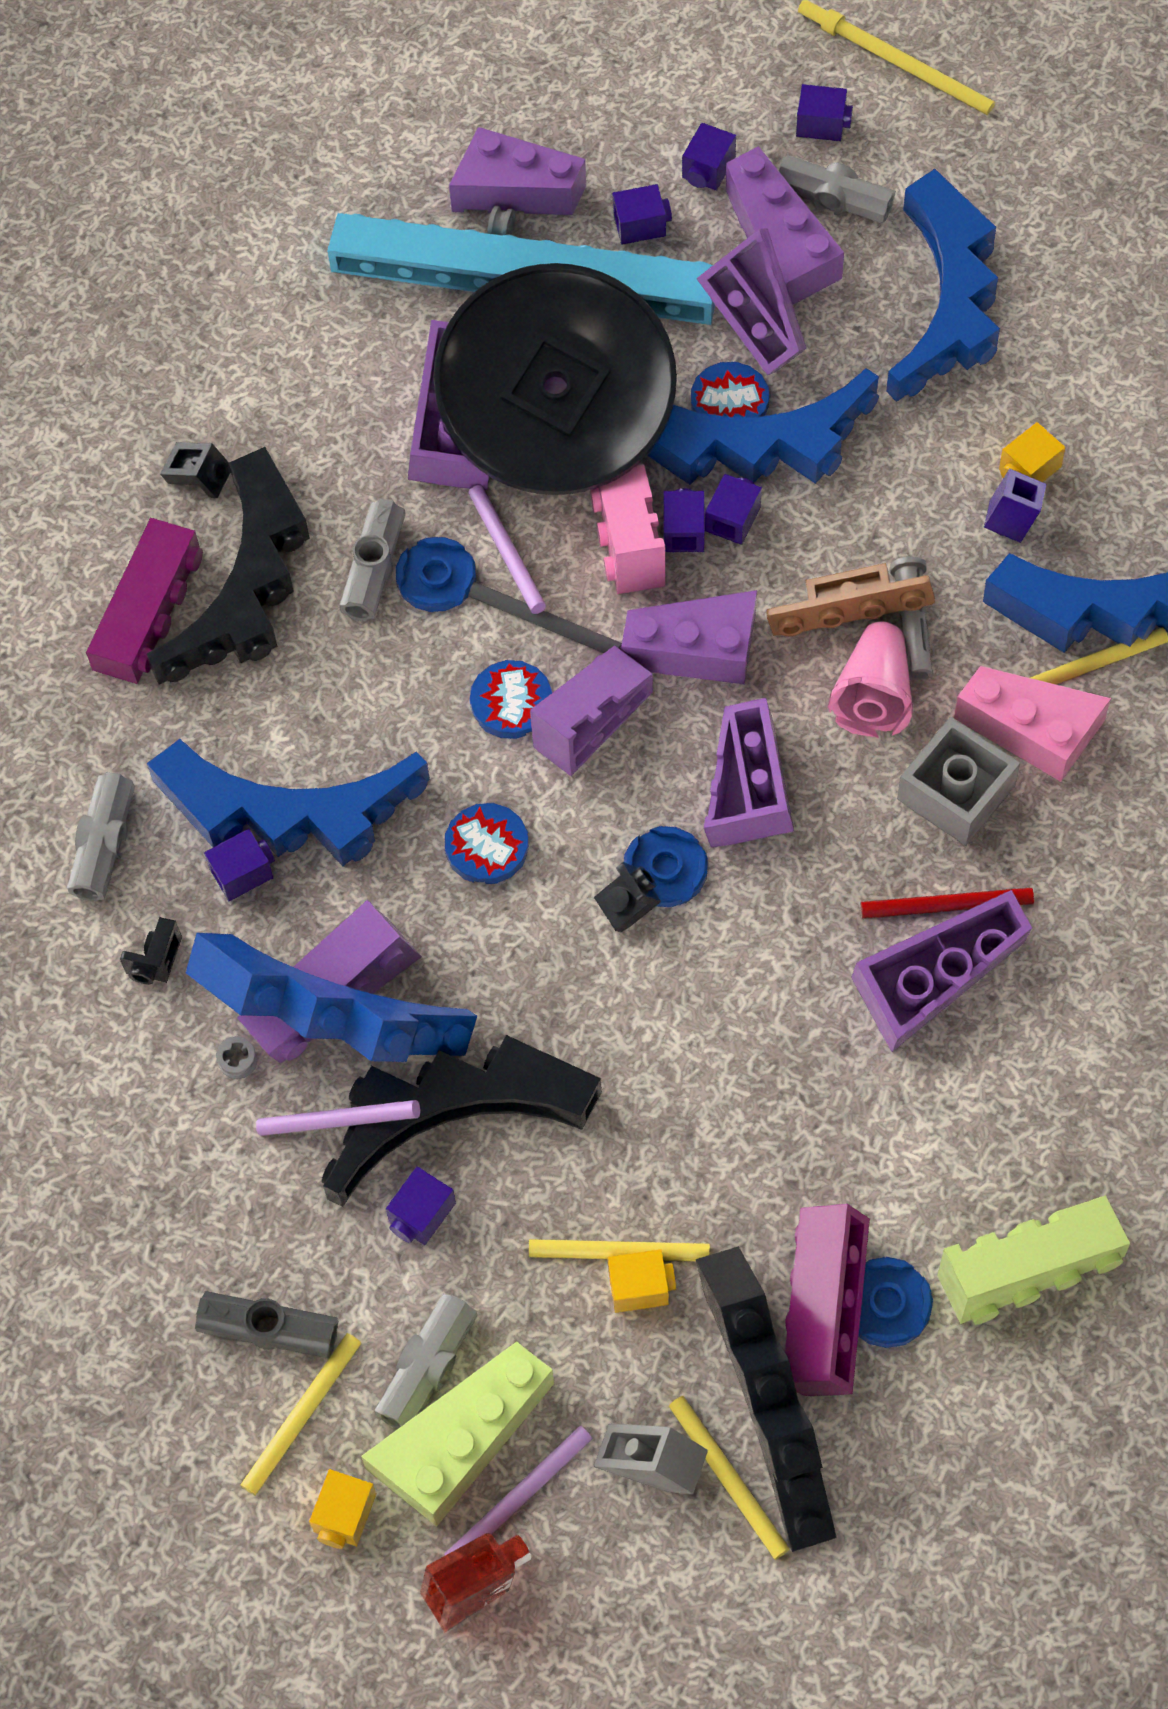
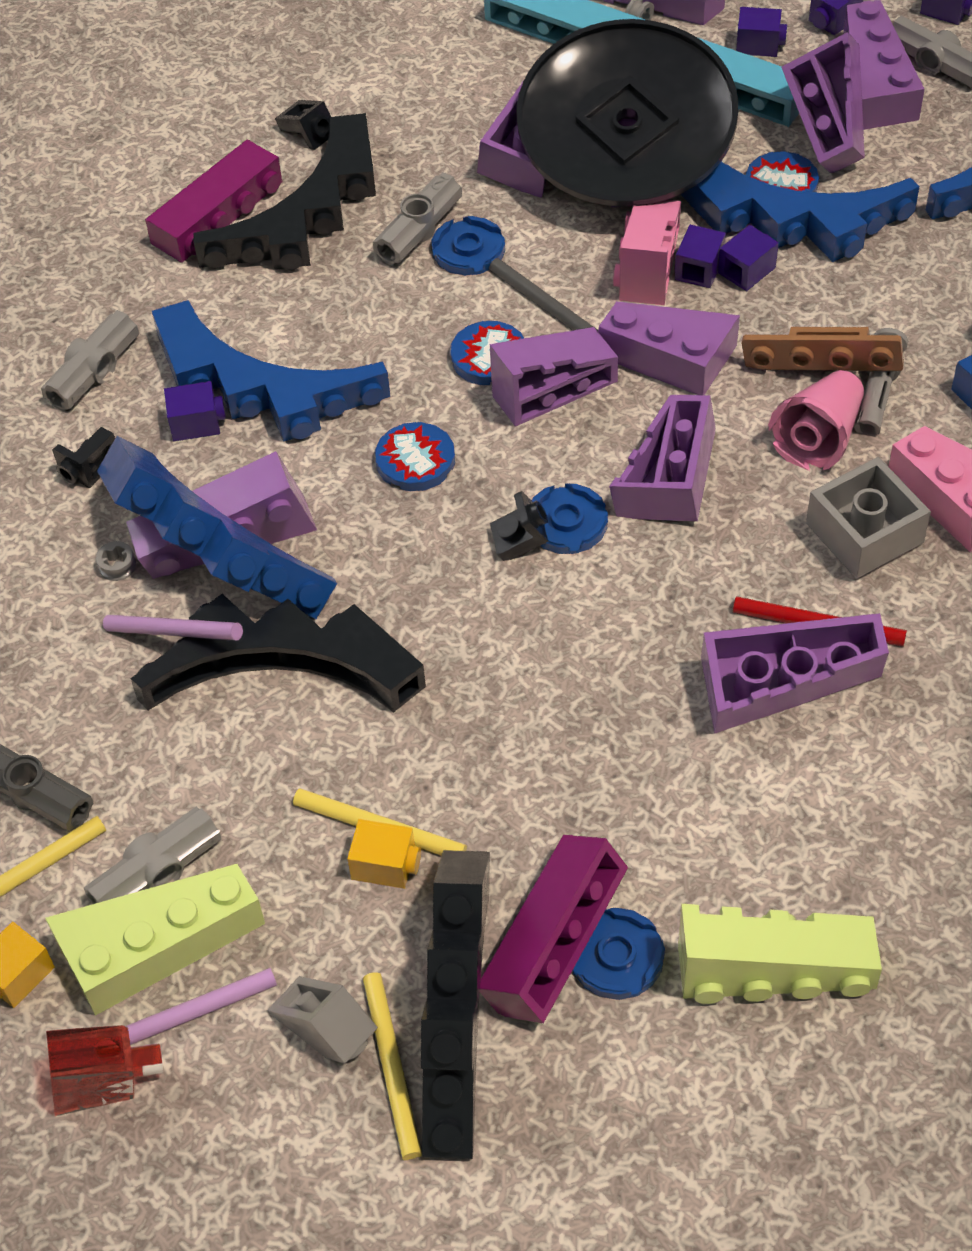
camera: 20 degrees right, 10 degrees down
(419, 1207) = (211, 727): dark purple brick -> none
(507, 549) = (536, 240): lavender bar -> none

